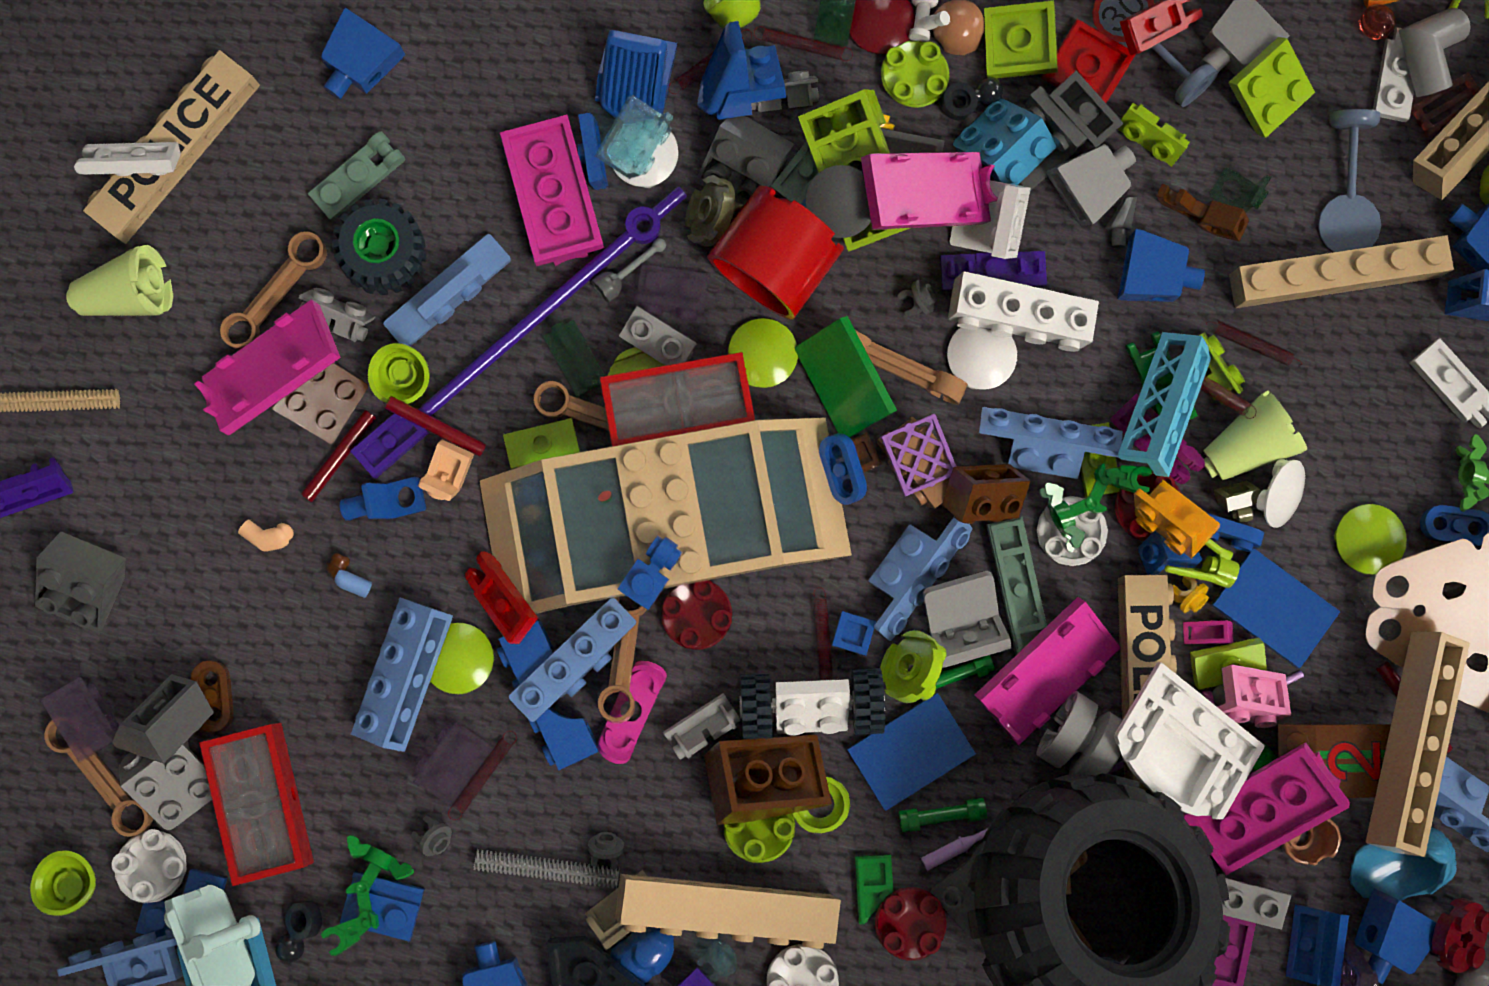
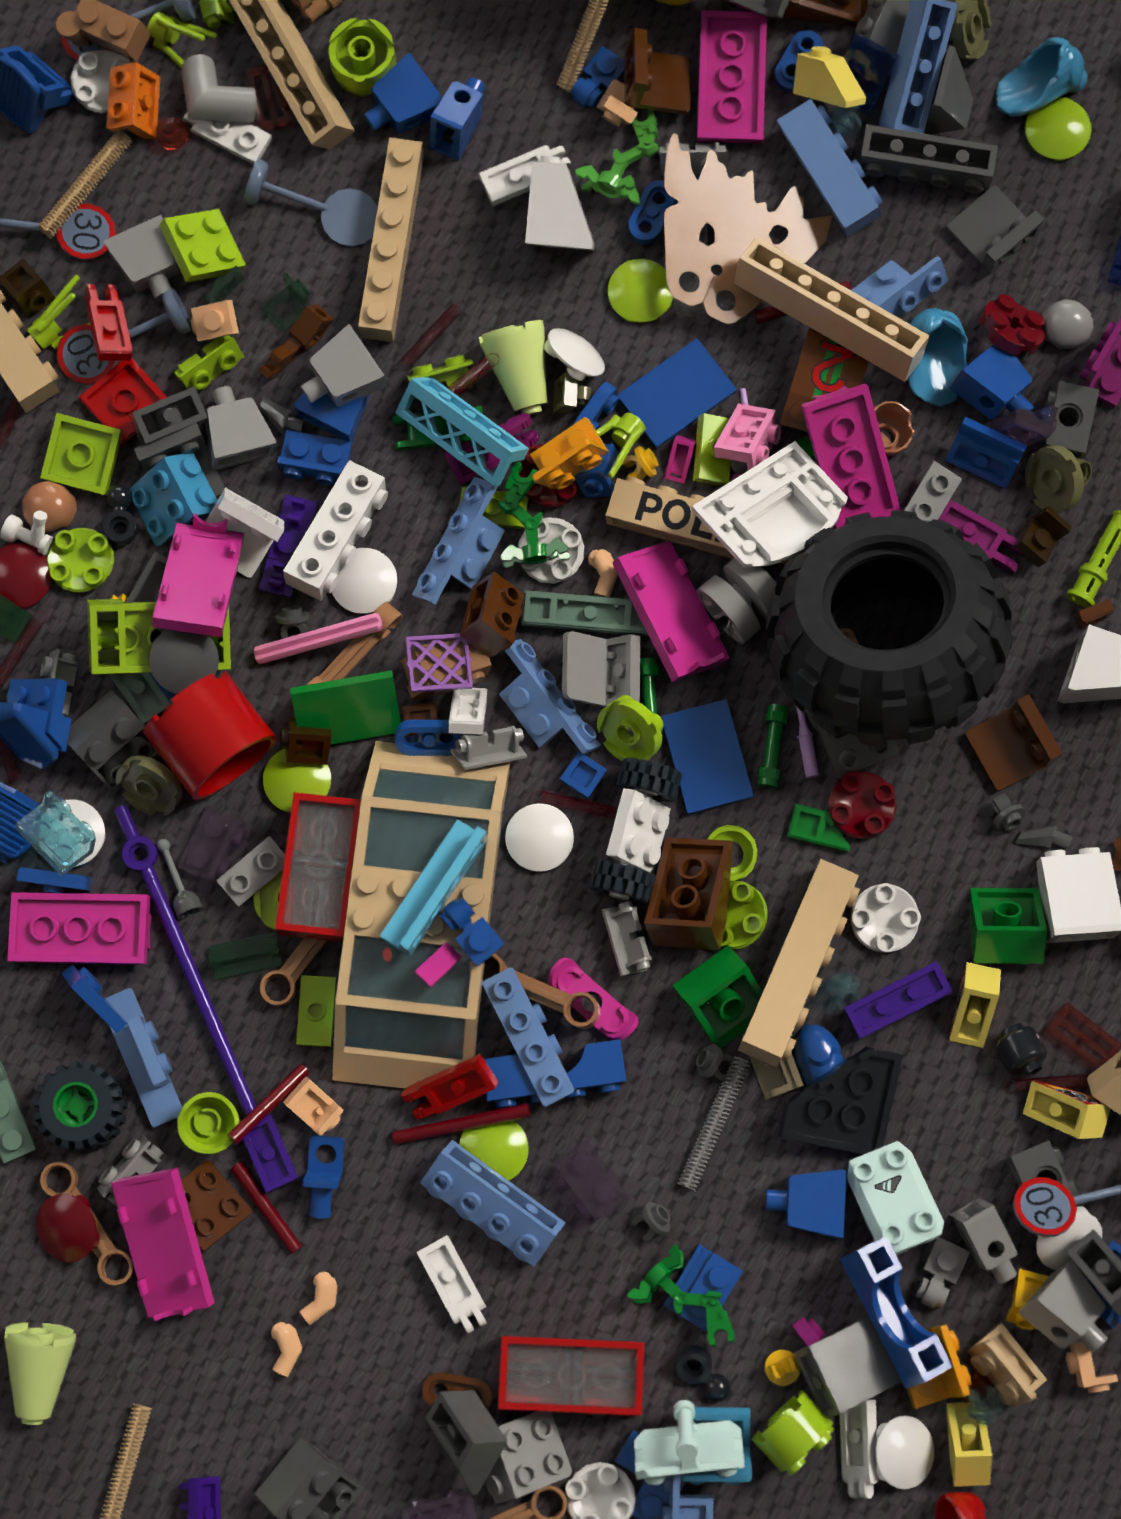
camera: 65 degrees left, 5 degrees down
(212, 520) = (289, 1346): none -> light nougat arm
(262, 273) = (67, 1227): none -> dark red dish
(316, 658) = (453, 1282): none -> white hinge
(345, 579) = (387, 1233): medium blue arm -> none
(472, 620) = (461, 1124): none -> dark red bar
(472, 779) = (610, 1158): dark red piece -> none
(488, 220) = (89, 990): none -> blue wing
(608, 549) = (438, 965): none -> dark pink piece
(673, 838) = (720, 996): none -> green slope
(684, 521) = (434, 887): none -> medium azure fence
(697, 615) = (522, 913): dark red dish -> none
(778, 608) = (539, 837): none -> white dish
(798, 349) = (305, 743): none -> dark brown bracket
(843, 523) = (475, 751): none -> light grey hinge
(880, 499) = (468, 711): none -> white plate
(908, 329) = (318, 638): none -> bright pink axle
(1076, 587) = (602, 561): none -> light nougat arm
(1091, 266) = (313, 457): none -> blue bracket
(1188, 265) = (343, 370): none -> light grey torso
(1198, 123) = (214, 320): none -> light nougat bracket
(1230, 120) = (224, 286): none -> clear green bracket
(1429, 425) = (555, 209): none -> white slope

